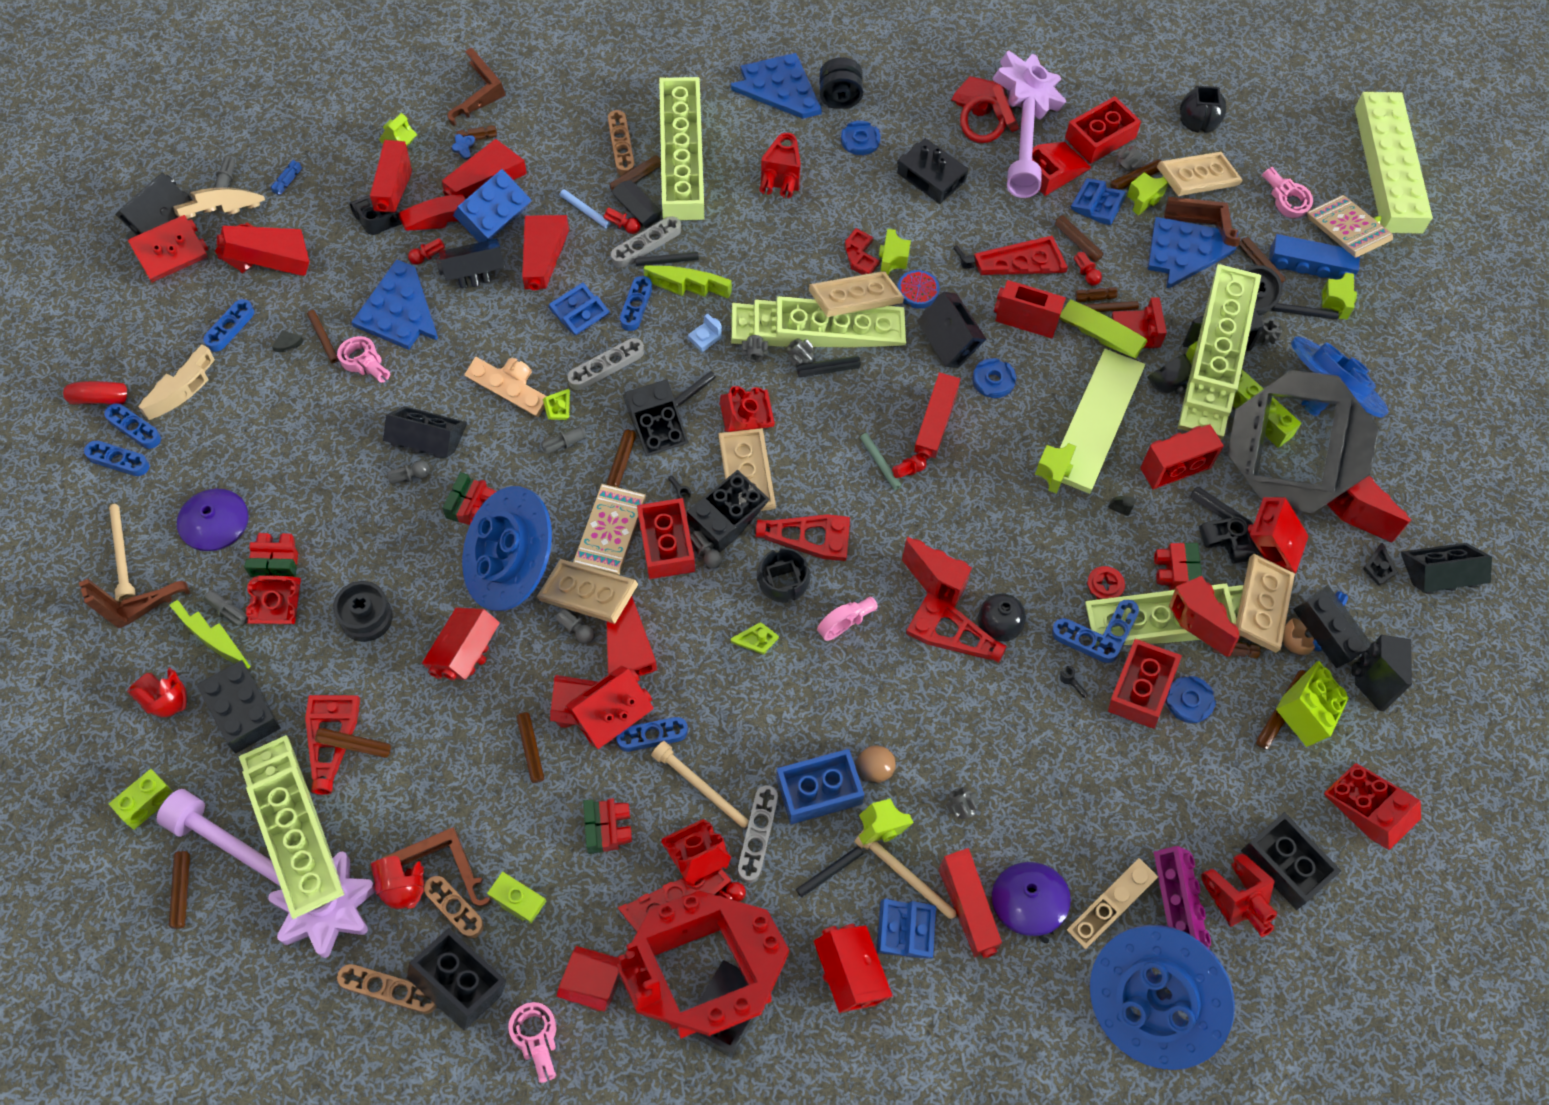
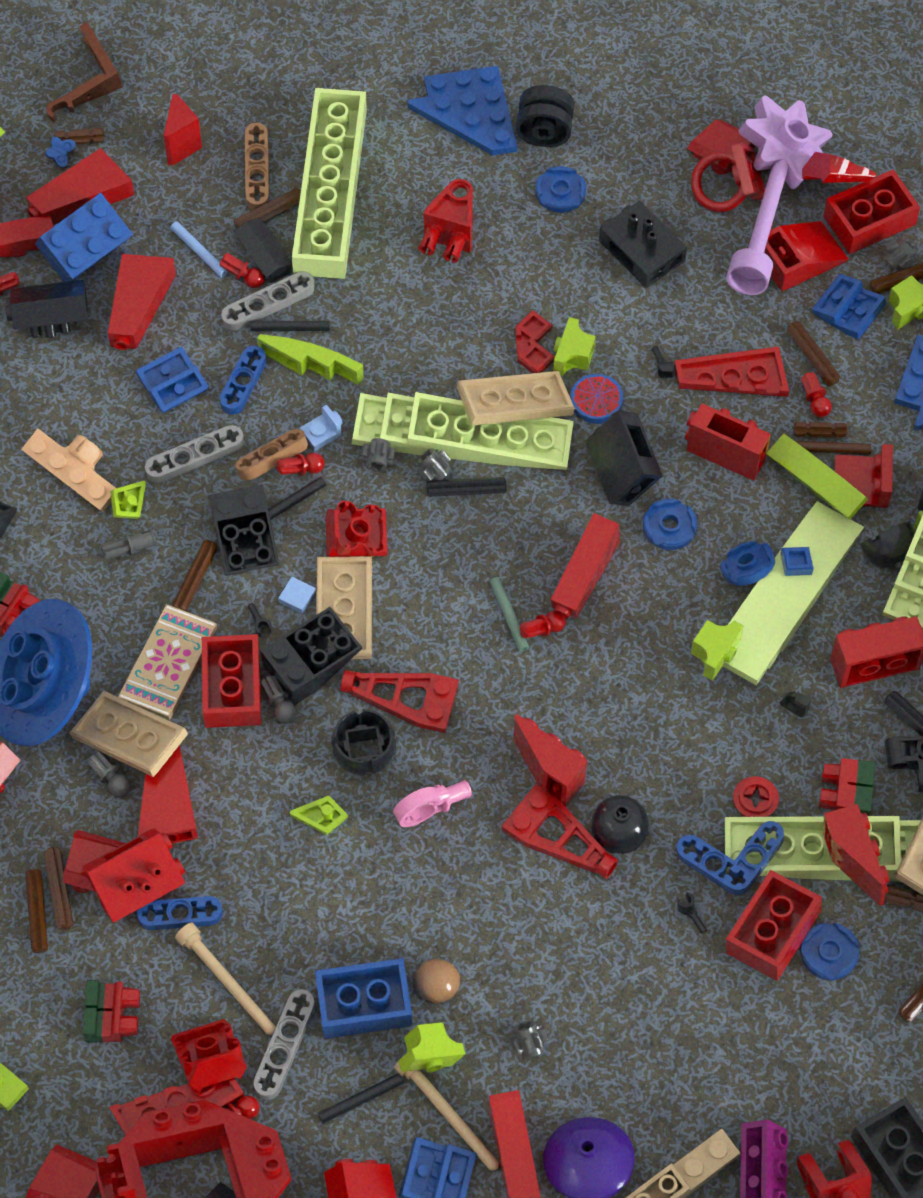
camera: 10 degrees right, 0 degrees up
(546, 726) = (58, 889): none -> reddish brown axle
(558, 120) = (181, 131): none -> red slope
(668, 357) = (260, 462): none -> medium nougat beam
(693, 363) = (311, 463): none -> red axle
(707, 465) = (297, 595): none -> light blue tile
(1072, 98) = (835, 169): none -> red slope
(1073, 396) = (739, 573): none -> blue tile
(1102, 394) = (796, 561): none -> blue tile

